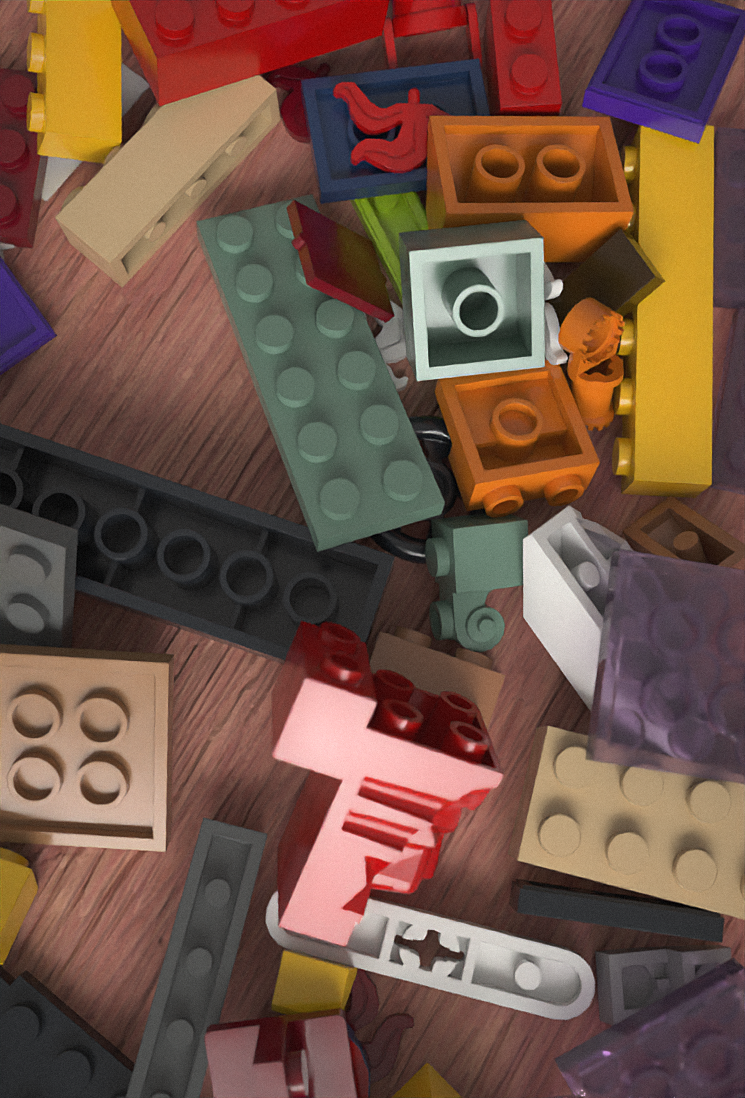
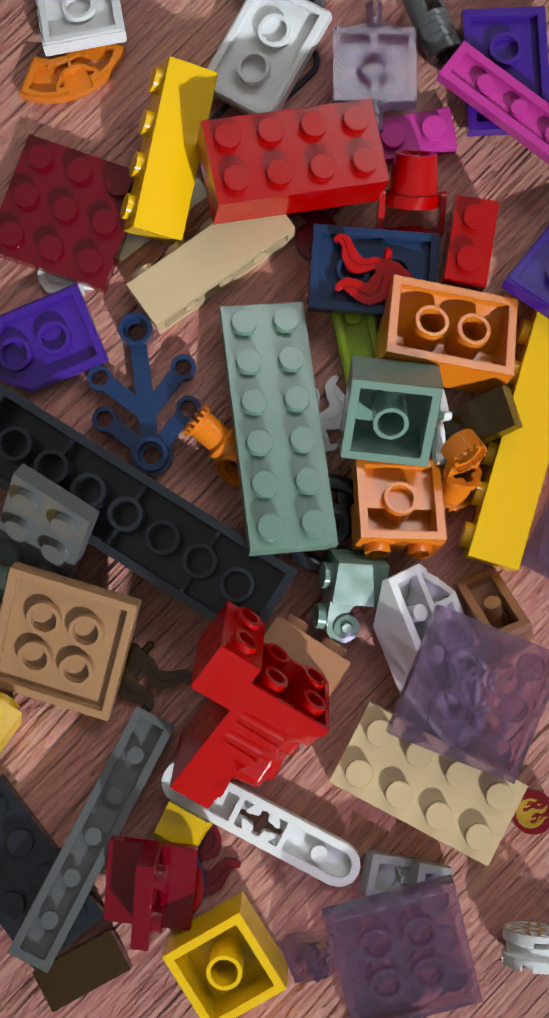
camera: 15 degrees right, 5 degrees up
(121, 381) = (146, 402): none -> dark blue plant
(187, 752) = (159, 679): none -> dark brown piece
(237, 407) = (218, 440): none -> orange connector
(339, 262) = (309, 359): dark red piece -> none
(615, 910) = (383, 826): black tile -> none

